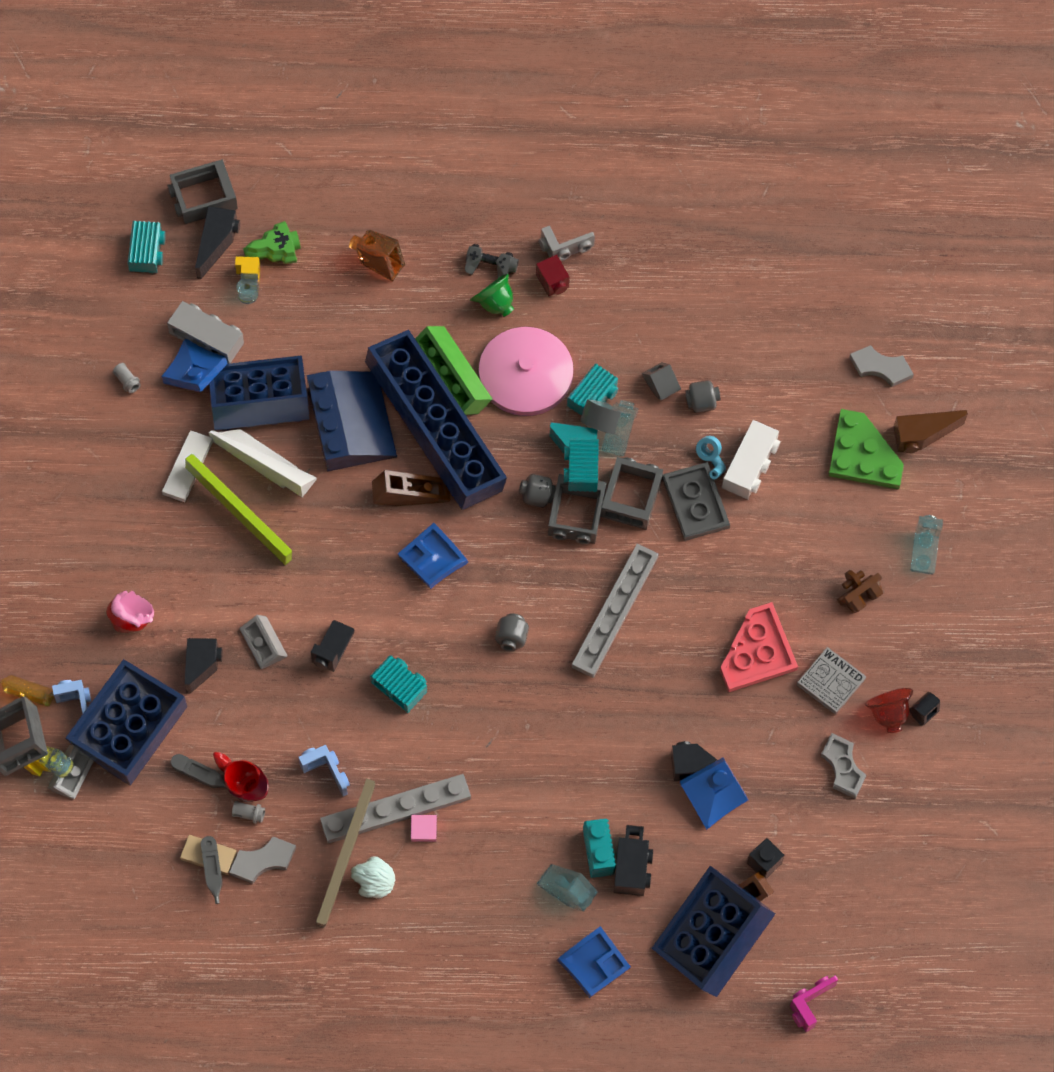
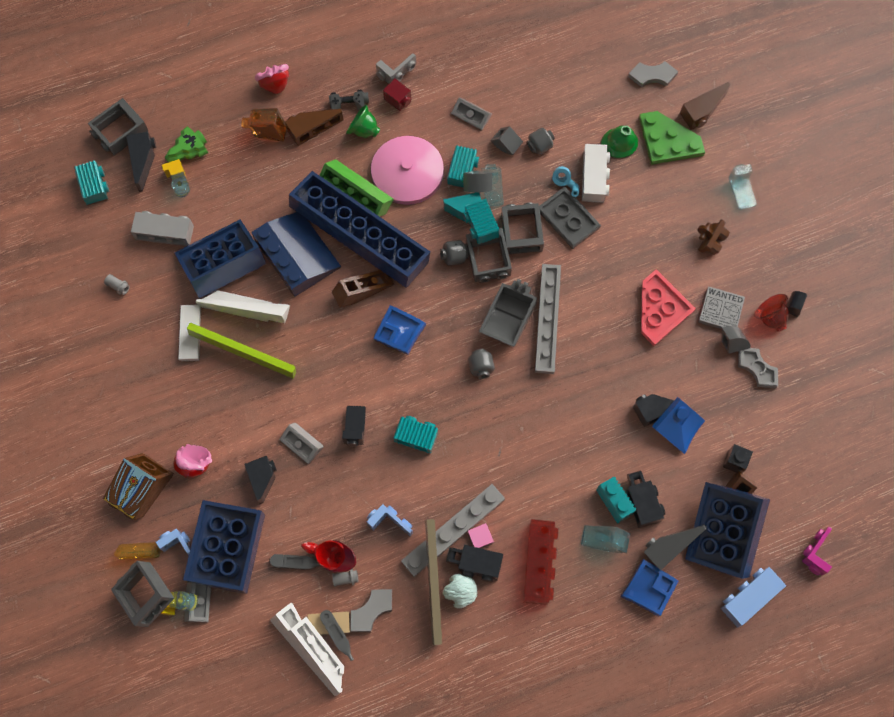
camera: 20 degrees left, 5 degrees up
(56, 616) = (137, 485): none -> reddish brown slope
(176, 870) = (310, 647): none -> white wedge
(193, 367) = (164, 257): blue plate -> none
(406, 854) = (477, 562): none -> black brick
(412, 201) = (273, 78): none -> red hair
(431, 273) = (310, 124): none -> reddish brown slope
(478, 882) = (539, 562): none -> clear red brick
(570, 586) = (509, 313): none -> dark grey piece
(634, 331) = (471, 113): none -> light grey slope
(635, 924) = (669, 546): none -> dark grey slope
(709, 1019) = (752, 596): none -> light blue brick
(801, 434) = (620, 141): none -> green hat
(829, 720) = (734, 339): none -> dark grey brick

